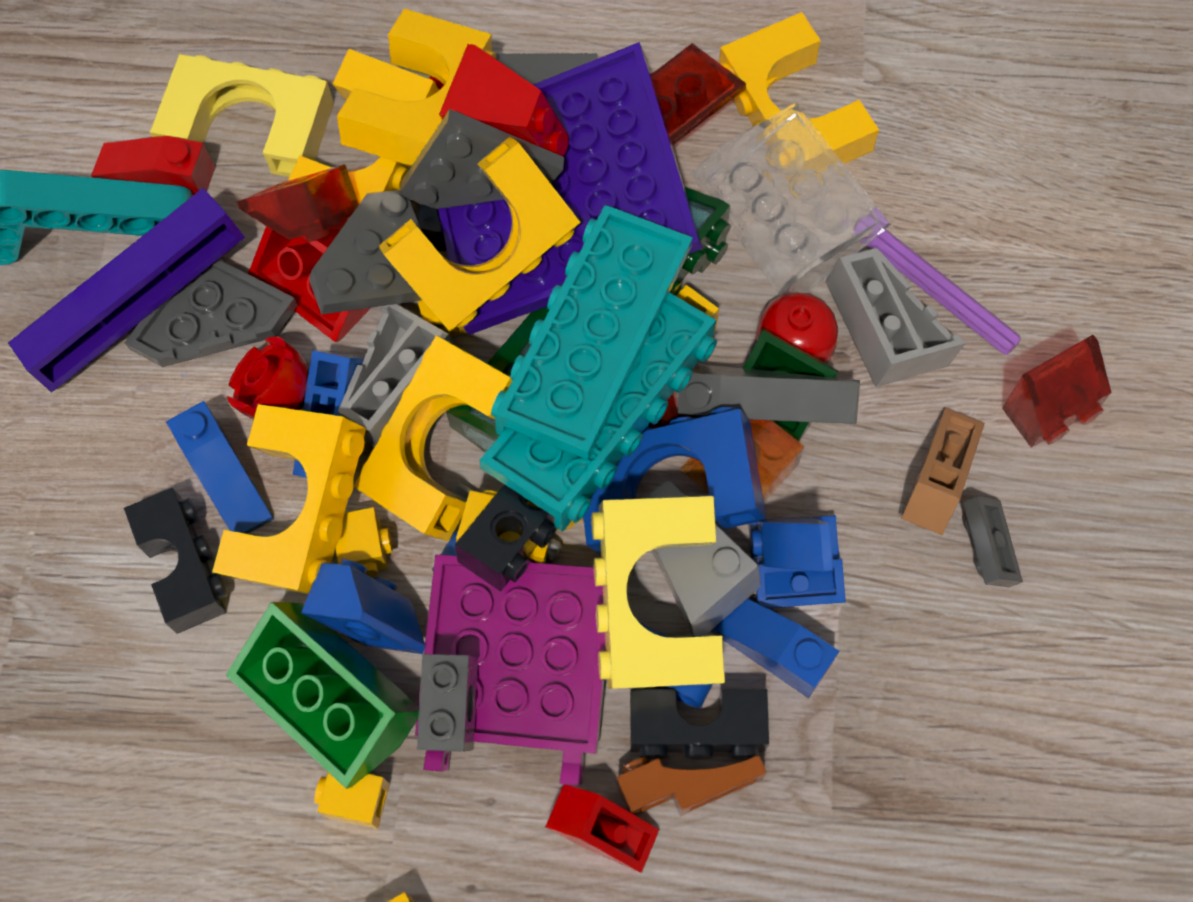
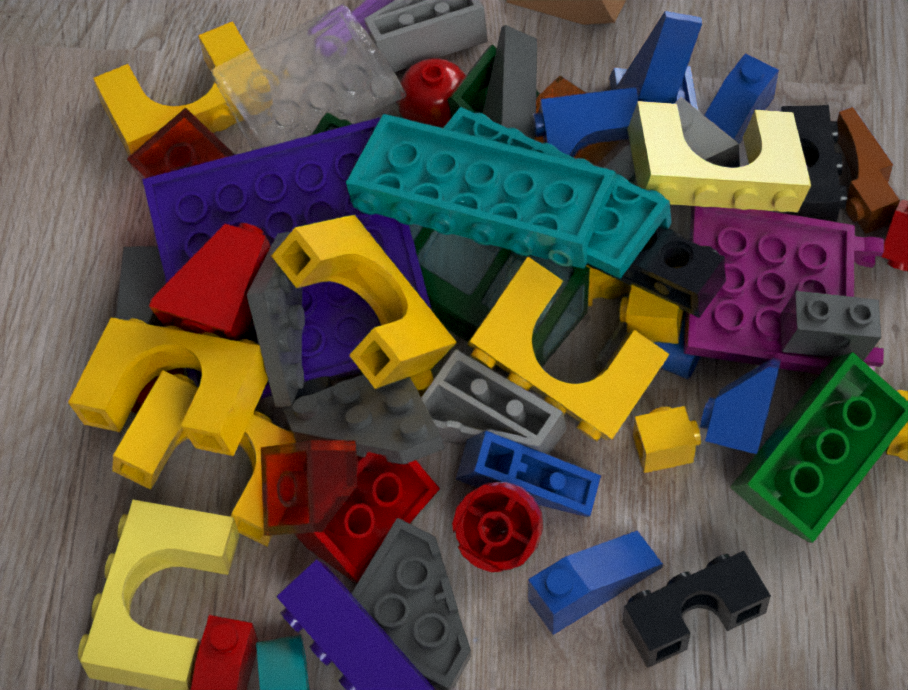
camera: 90 degrees left, 10 degrees down
(329, 454) = (697, 475): yellow arch -> none

